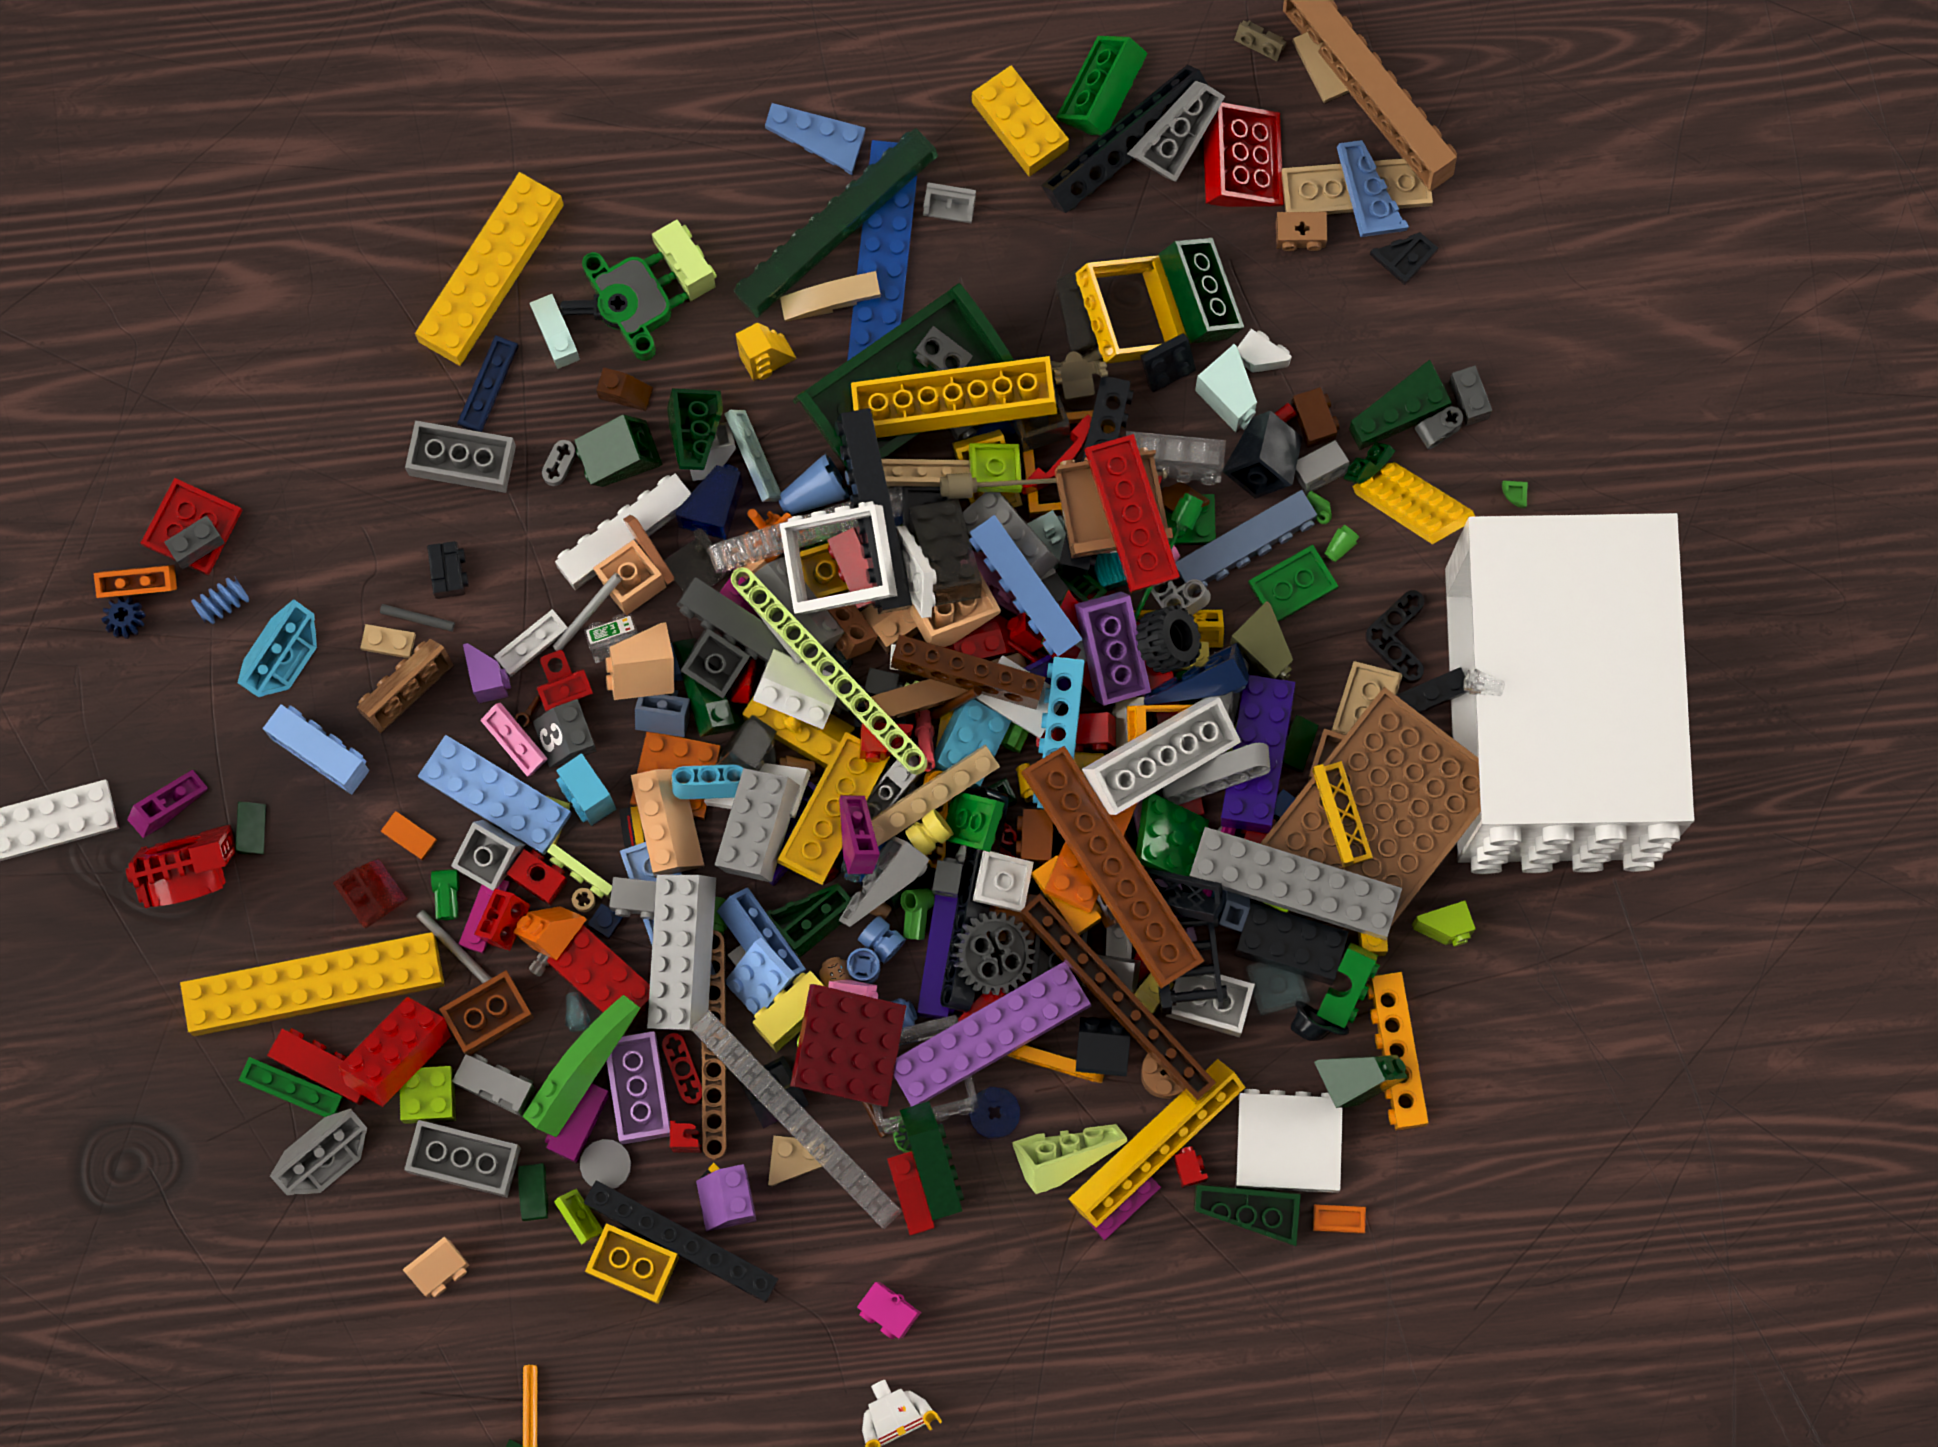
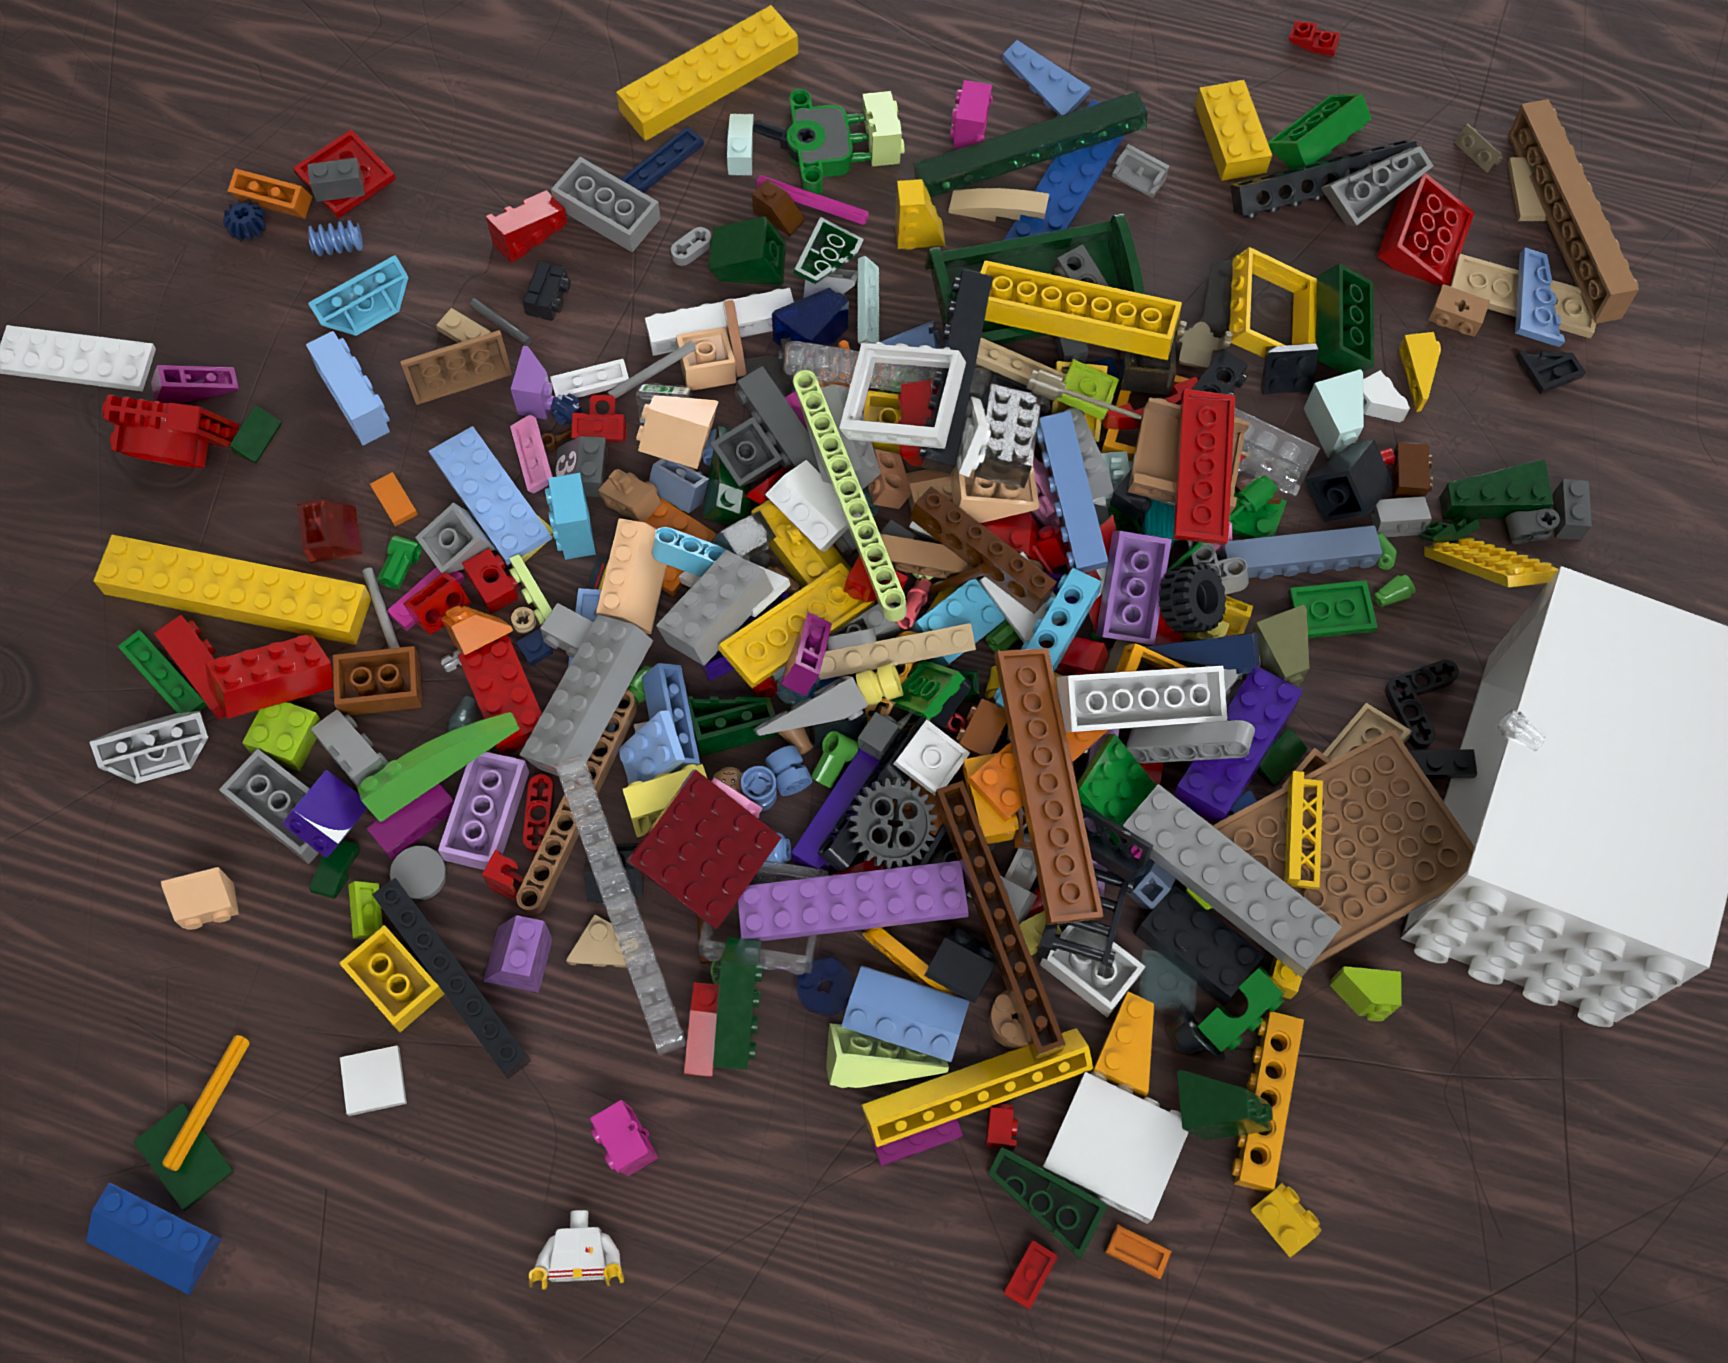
camera: 20 degrees right, 10 degrees down
(397, 509) = (526, 225): none -> red wedge
(508, 1150) = (325, 814): none -> dark purple panel
(524, 682) = (564, 407): none -> dark blue gear
(624, 744) = (630, 495): none -> medium nougat brick
(652, 364) = (820, 202): none -> dark pink axle
(656, 1352) = (373, 1080): none -> white tile
(765, 214) = (970, 114): none -> dark pink brick
(888, 801) = (851, 639): none -> light grey beam
(1072, 1108) = (905, 1013): none -> medium blue slope
(1260, 1274) = (1030, 1275): none -> red plate
(1265, 1055) = (1128, 1046): none -> light orange wedge
(1284, 298) = (1419, 359): none -> yellow slope
(1448, 1141) = (1287, 1219): none -> yellow bracket

